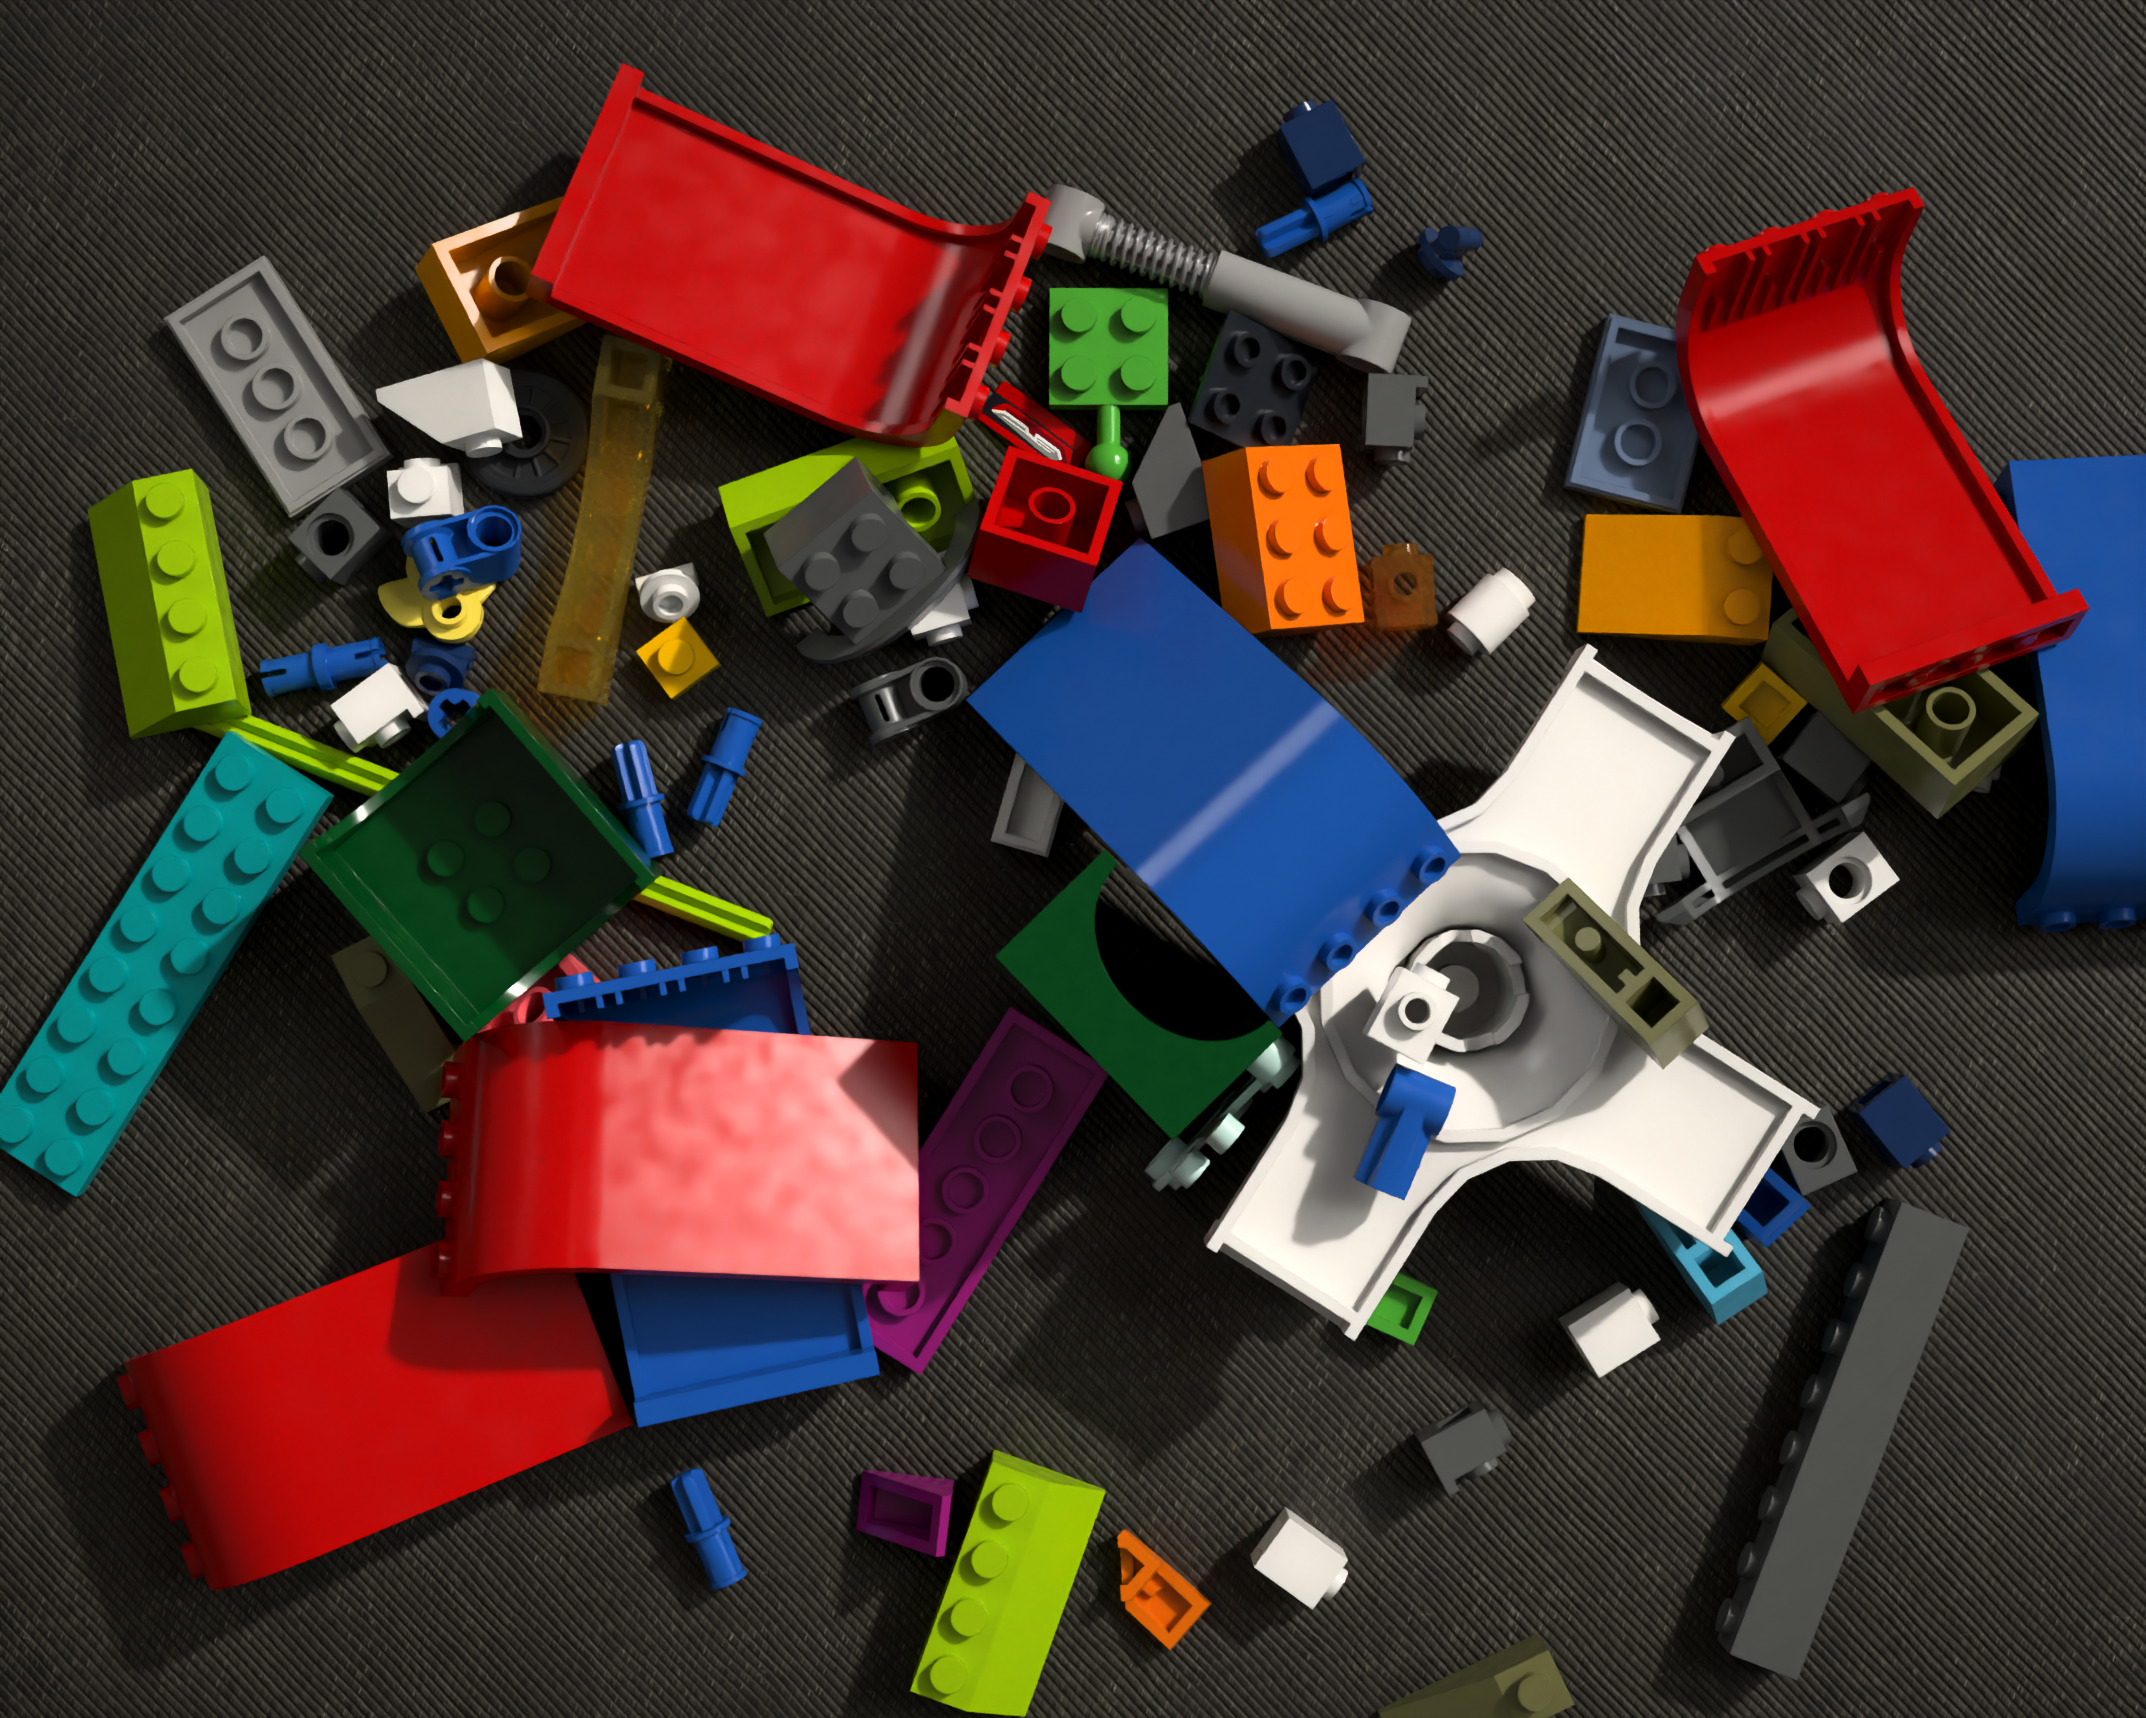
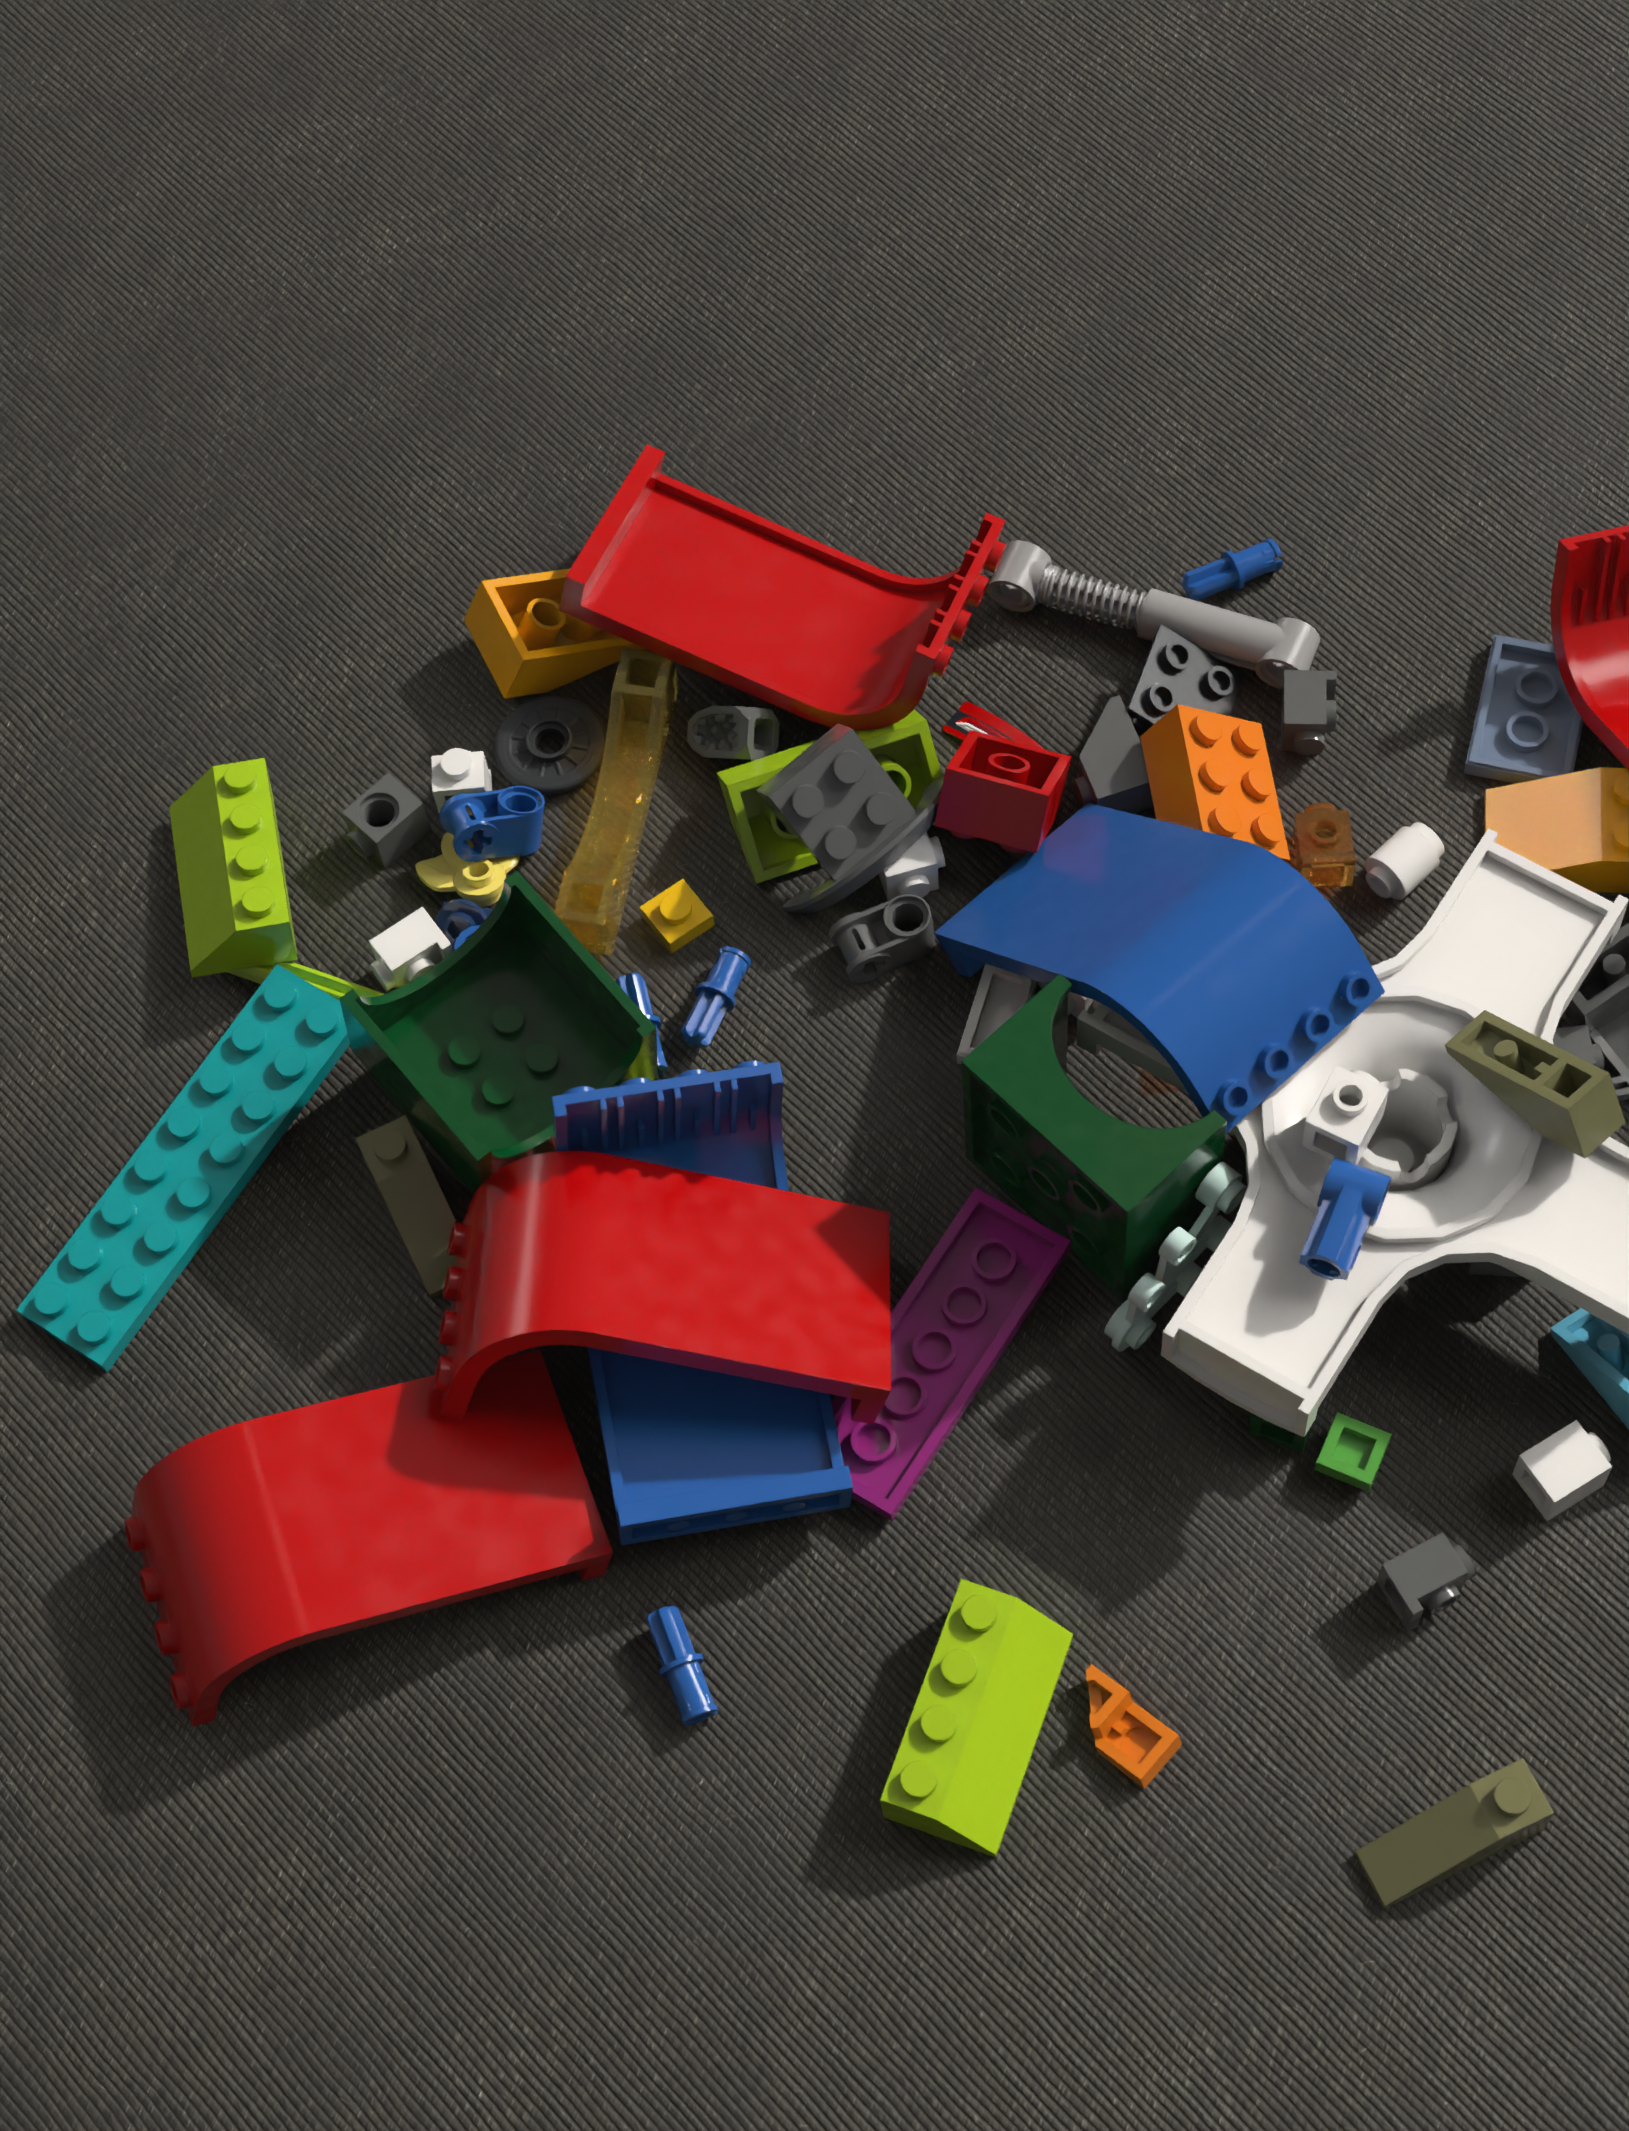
camera: 10 degrees right, 25 degrees down
(278, 387) = (339, 713): light grey tile -> none
(323, 666) = (357, 925): blue pin -> none
(460, 406) = (493, 713): white slope -> none
(669, 593) = (670, 860): white plate -> none
(737, 432) = (734, 732): none -> dark grey rock
(906, 1510) = (878, 1644): magenta slope -> none
(1108, 358) = (1056, 677): bright green plate -> none
(1300, 1559) = (1269, 1689): white brick -> none
(1319, 148) = (1233, 515): dark blue brick -> none
(1442, 250) = (1350, 586): dark blue plate -> none

